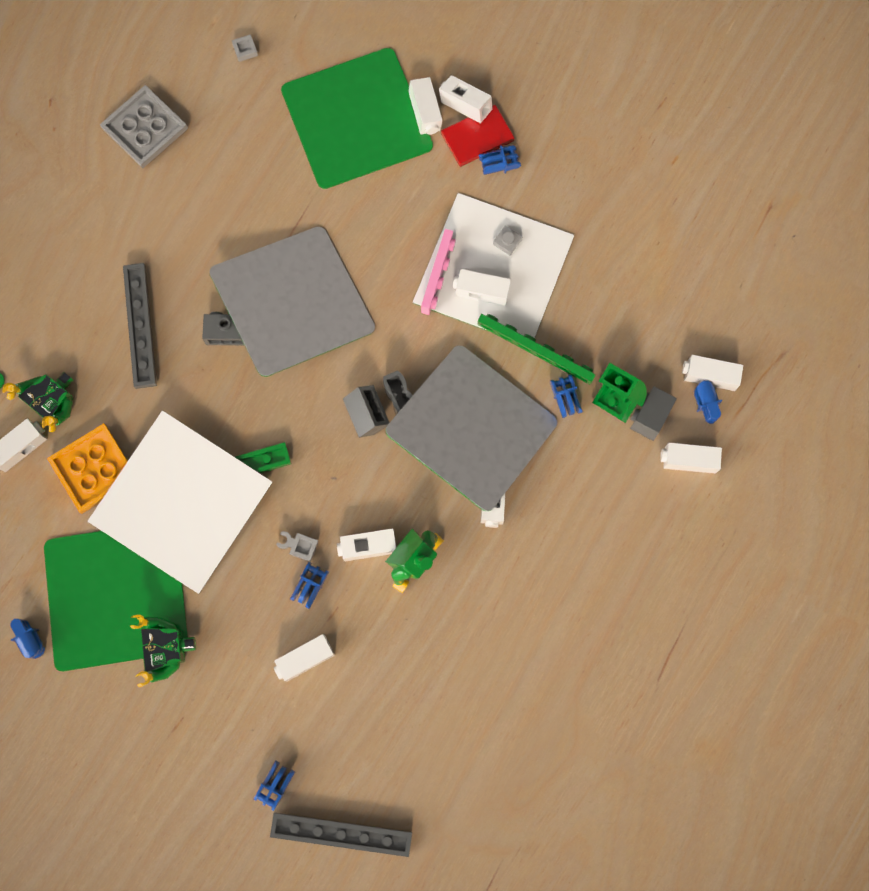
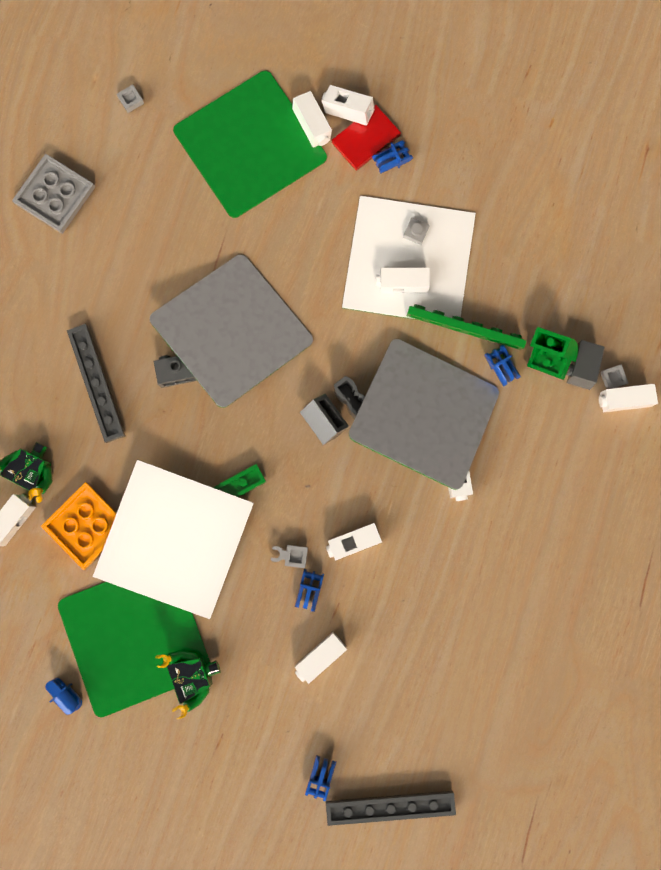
camera: 10 degrees left, 5 degrees up
(413, 557) = (399, 545): green torso -> none
(436, 279) = (361, 266): bright pink plate -> none
(682, 433) = (614, 377): none -> light grey plate
(707, 401) = (631, 343): blue arm -> none
(720, 373) = (630, 315): white brick -> none

